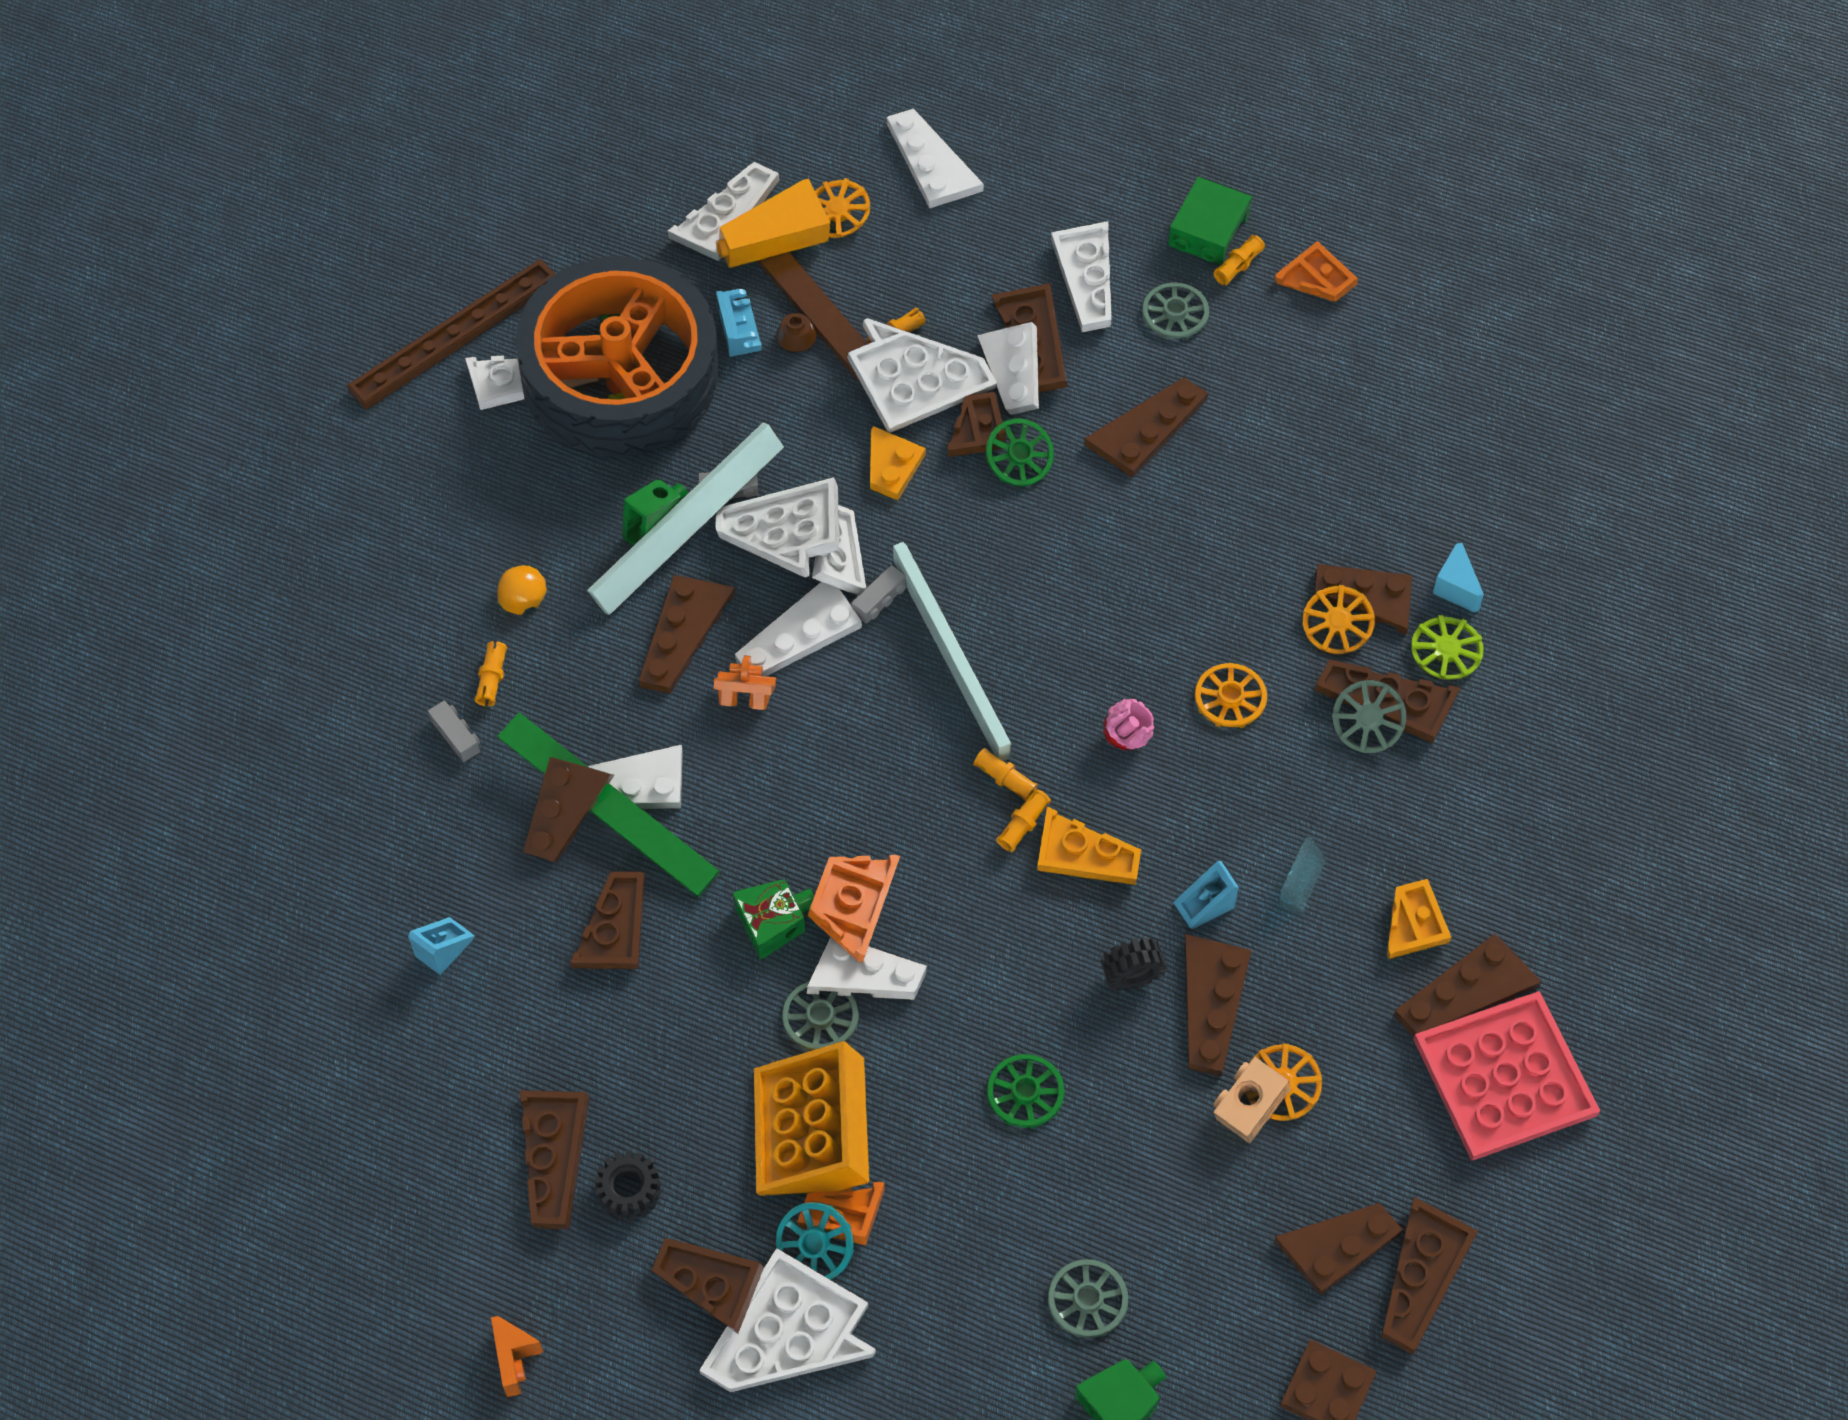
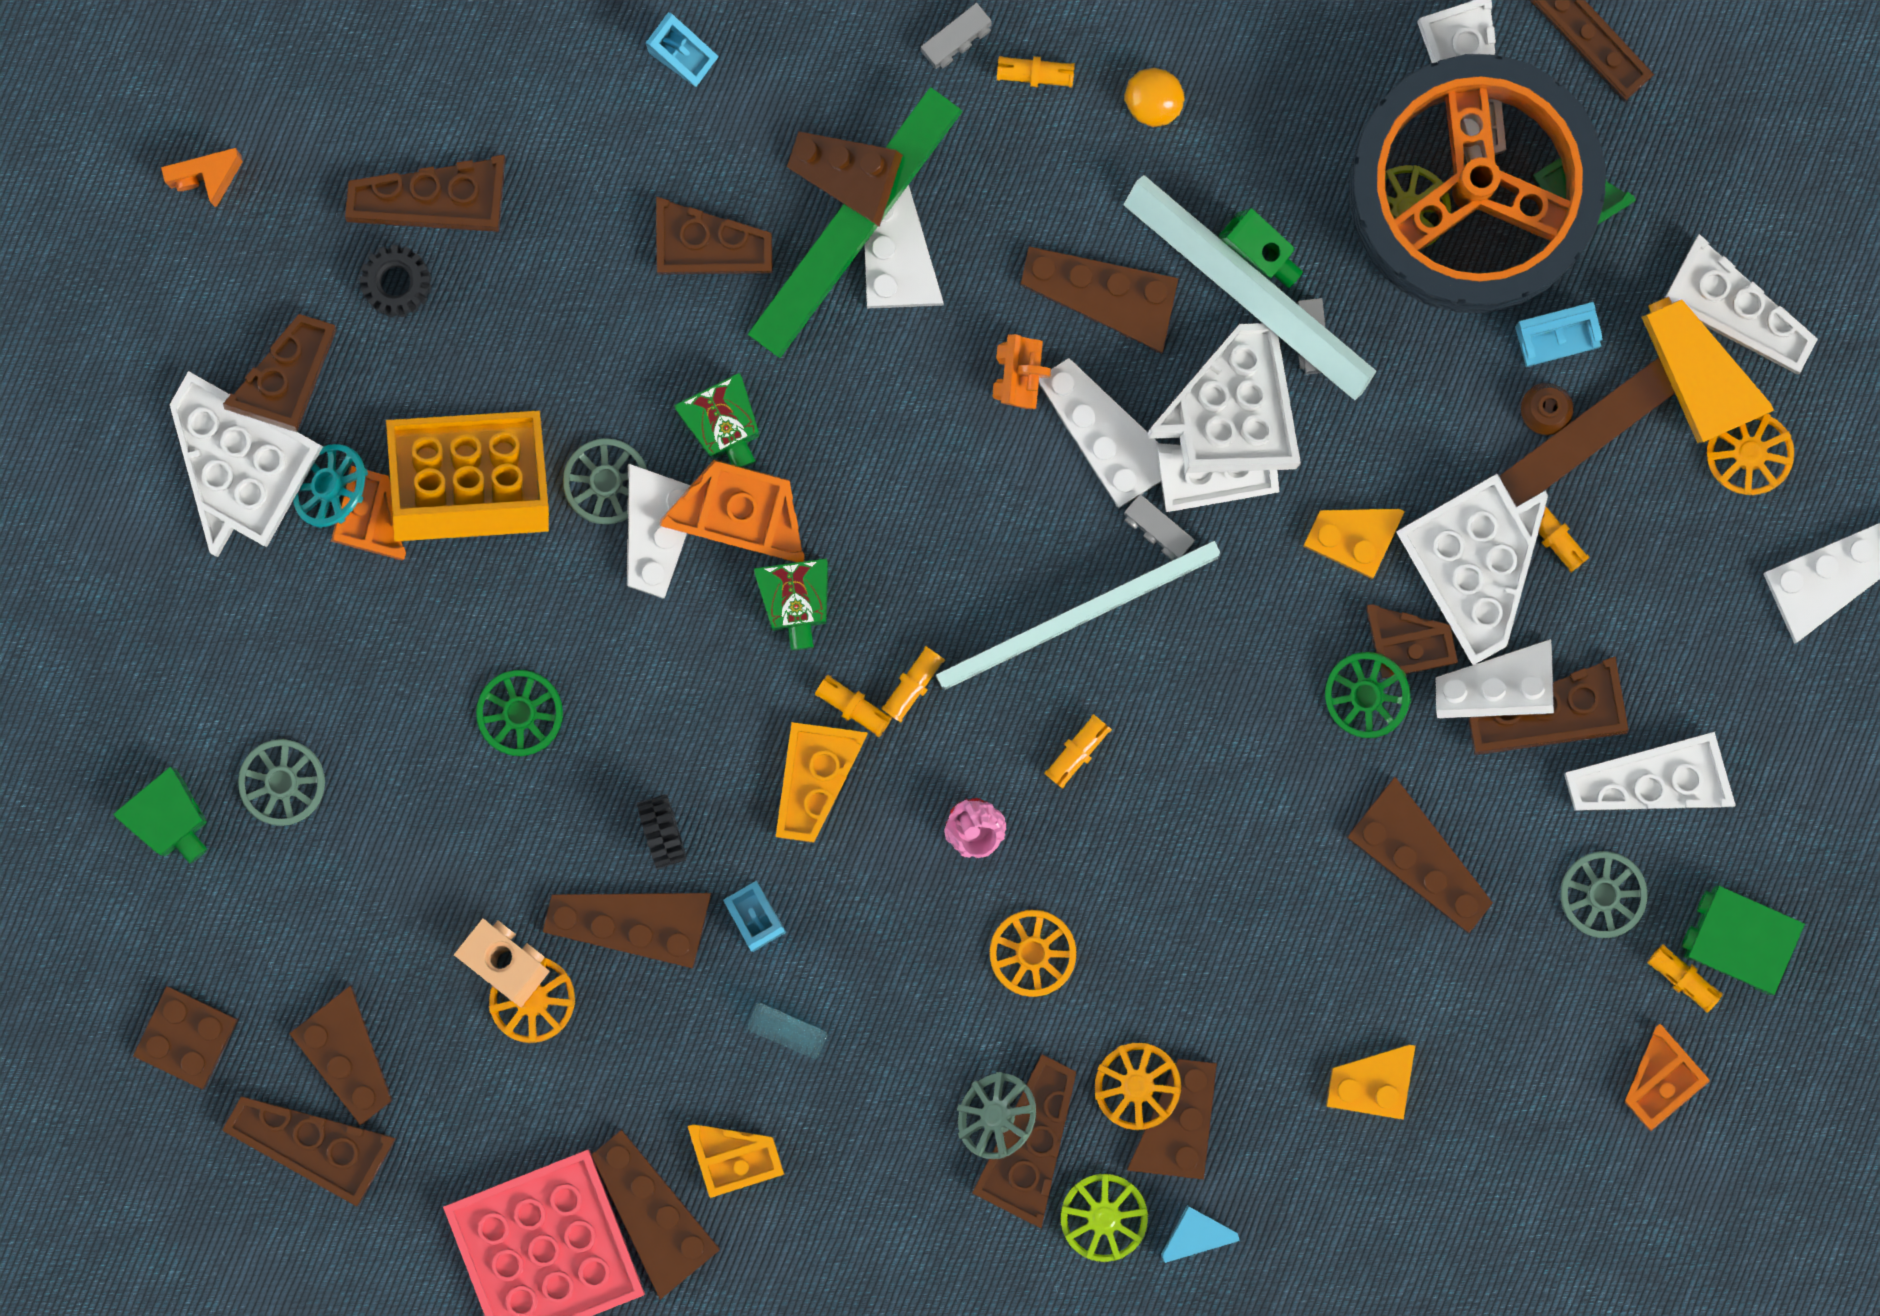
camera: 90 degrees right, 25 degrees up
(930, 860) = (795, 598): none -> green torso
(1063, 655) = (1077, 751): none -> light orange pin
(1328, 461) = (1373, 1084): none -> light orange wing

